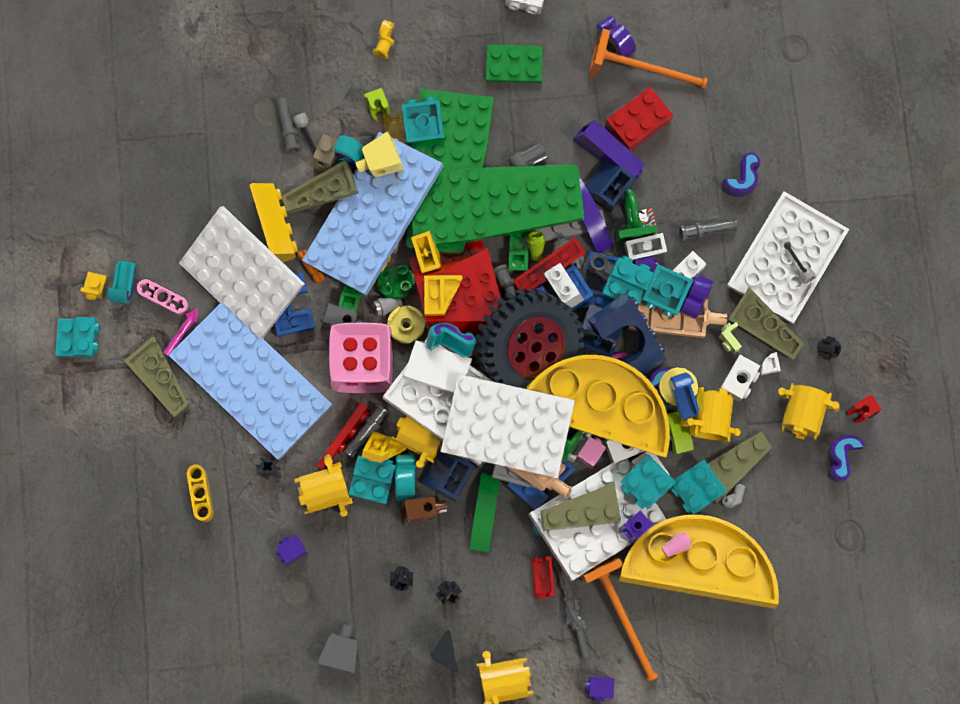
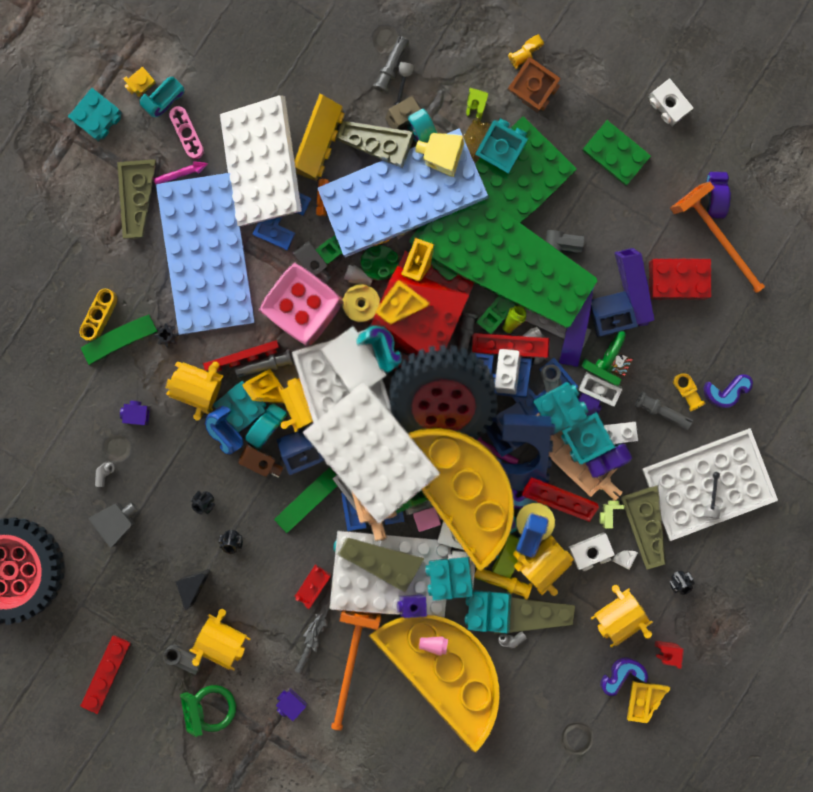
camera: 45 degrees right, 10 degrees up
(230, 501) = (118, 339): none -> green slope
(300, 617) = (103, 471): none -> light grey arm
(373, 509) = (222, 430): none -> blue animal
(411, 59) = (534, 85): none -> dark orange plate
(683, 355) = (560, 499): none -> red plate
(699, 453) = (512, 585): none -> yellow pin
(715, 199) = (689, 392): none -> yellow connector
(875, 463) = (644, 700): none -> yellow wing

